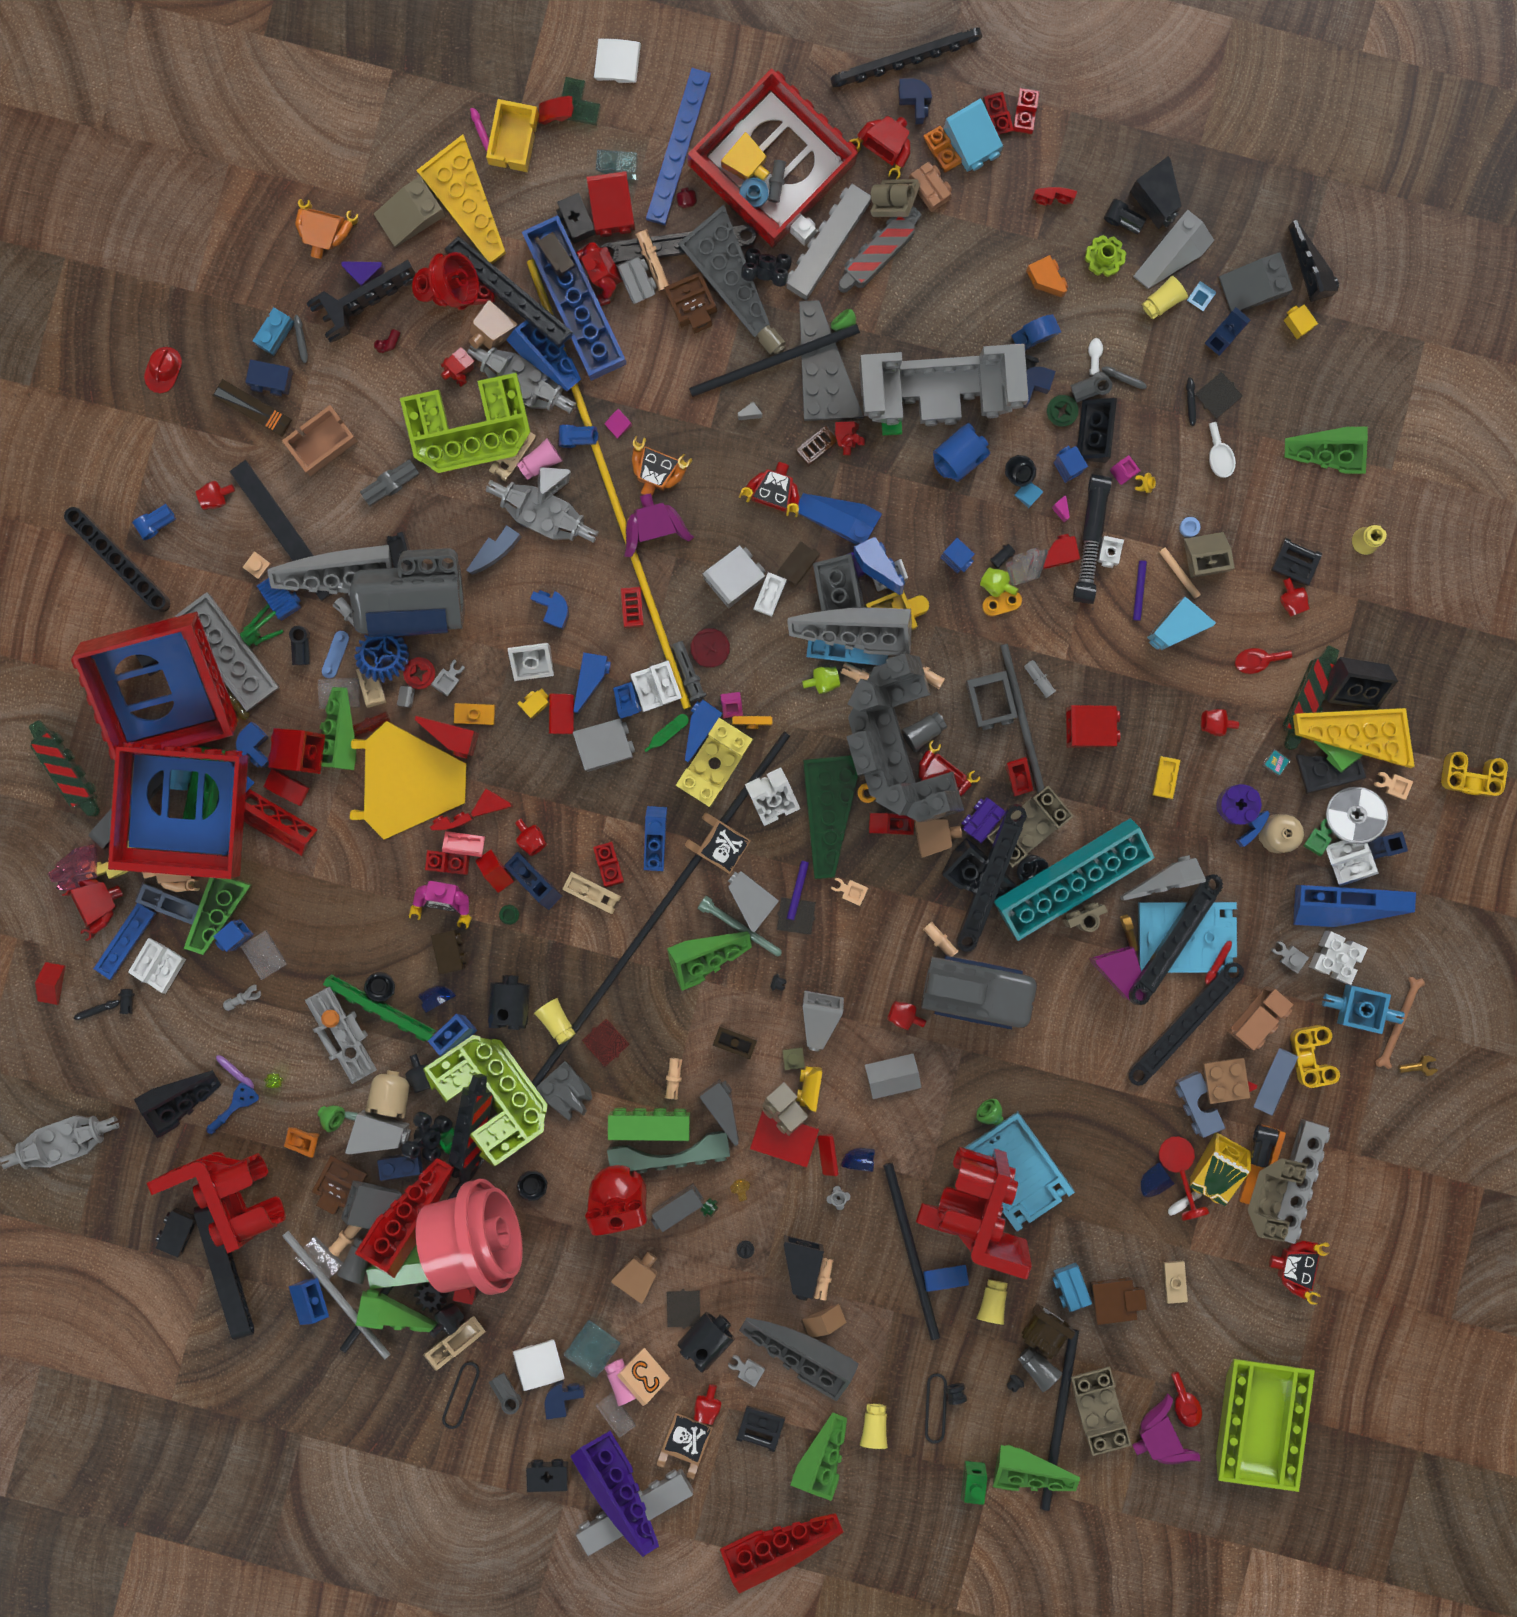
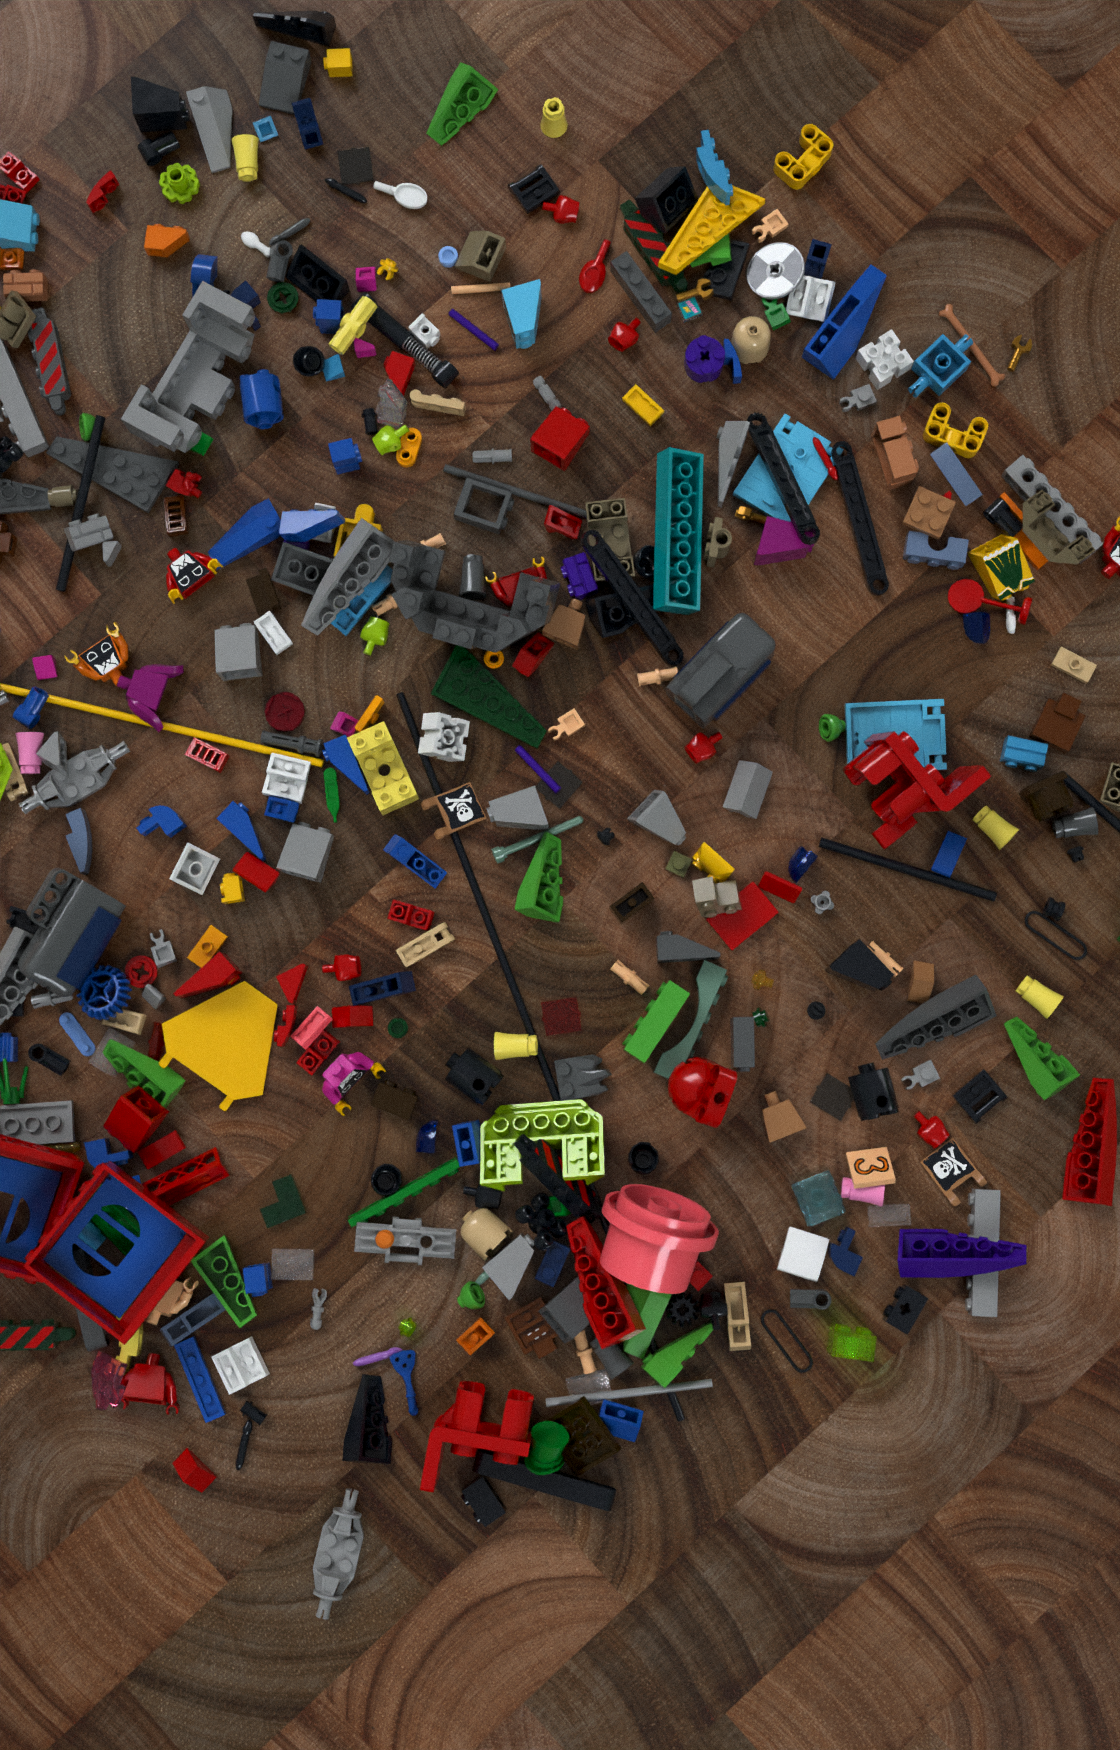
camera: 50 degrees left, 5 degrees down
(253, 1257) = (546, 1448): none -> green hat
(275, 1279) = (589, 1437): none -> dark brown plate
(308, 920) = (289, 1204): none -> clear green plate
(491, 1451) = (851, 1343): none -> clear neon green brick
(753, 385) = (88, 533): none -> light grey brick
(1055, 601) = (437, 403): none -> tan plate
(1074, 489) = (353, 325): none -> light yellow piece
(1123, 689) = (546, 392): none -> light grey axle
(1263, 712) = (640, 291): none -> dark grey brick
(1294, 759) = (697, 291): none -> pearl gold bar
(1410, 705) = (712, 170): none -> dark azure slope

